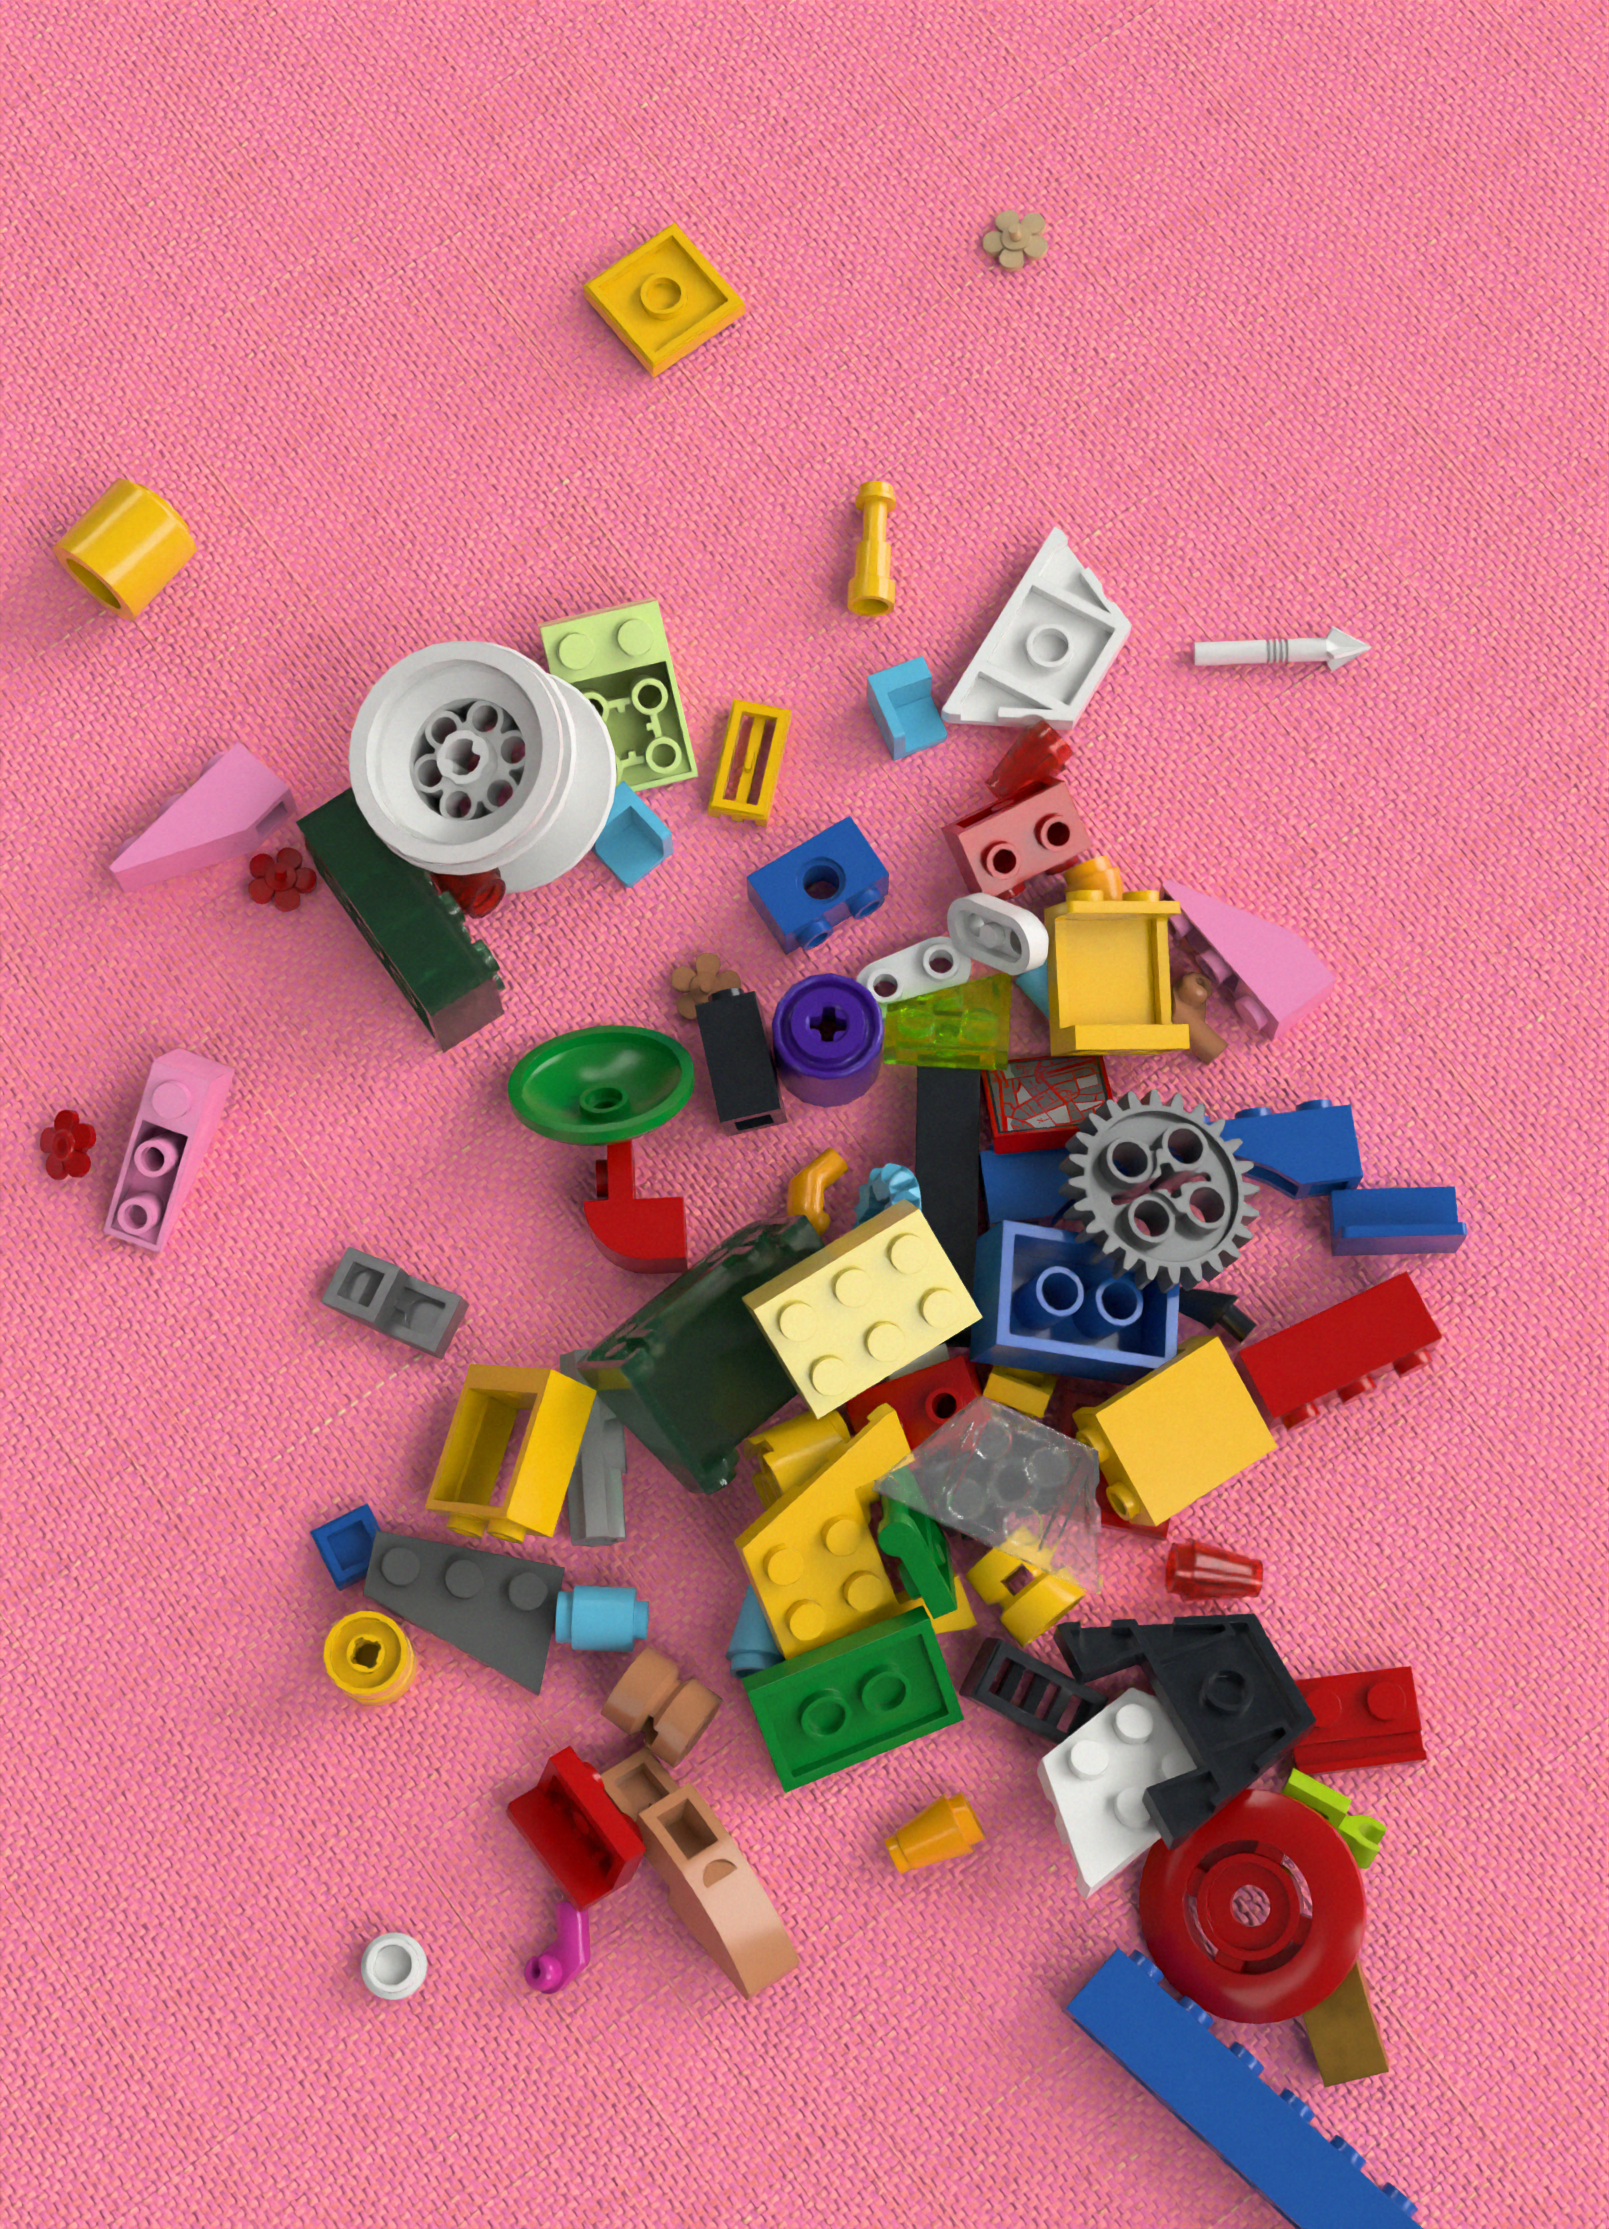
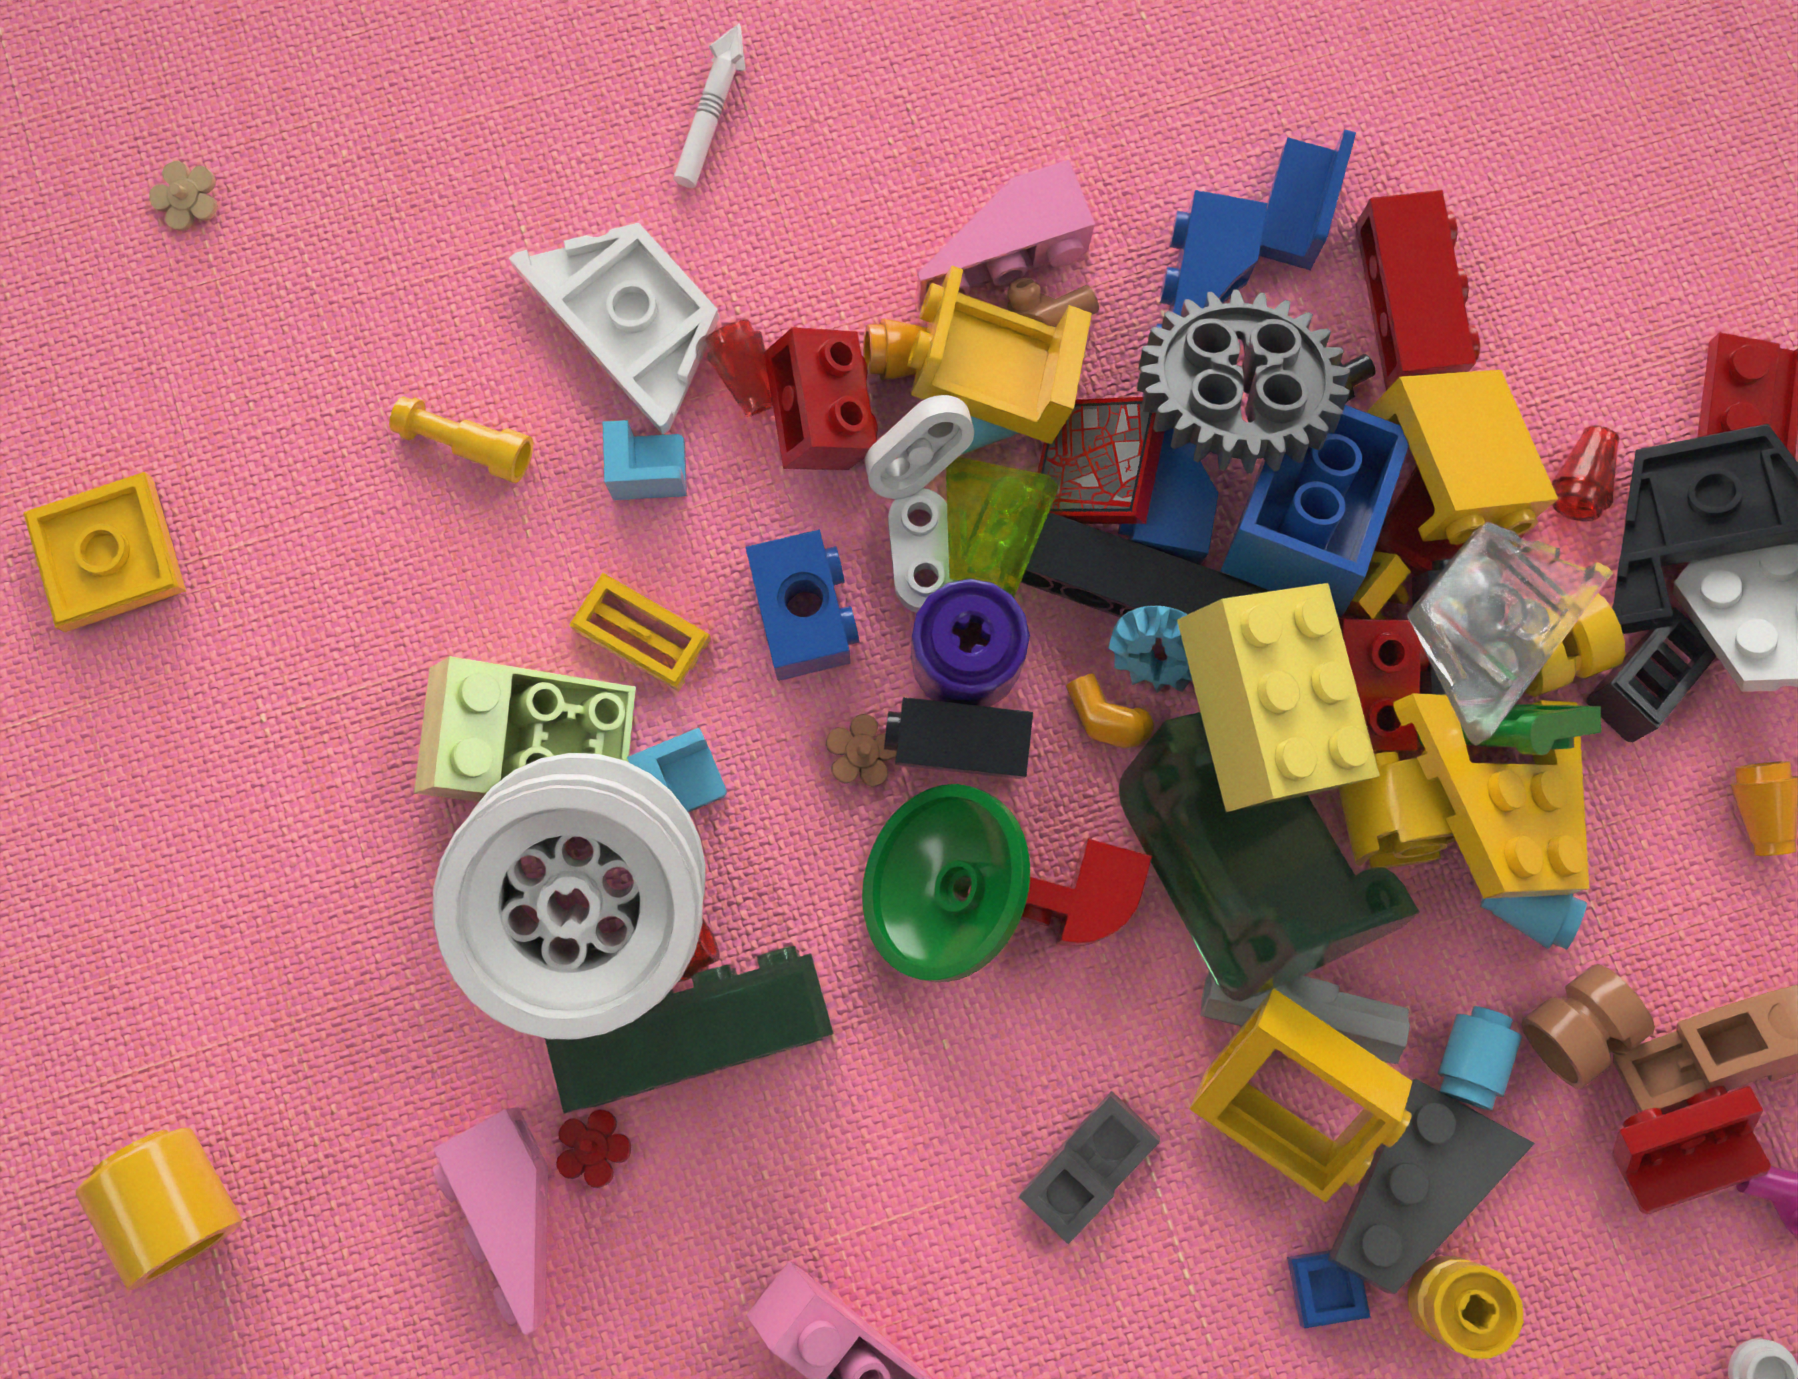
camera: 75 degrees left, 5 degrees up
(853, 1698) = (1632, 838): green plate -> none

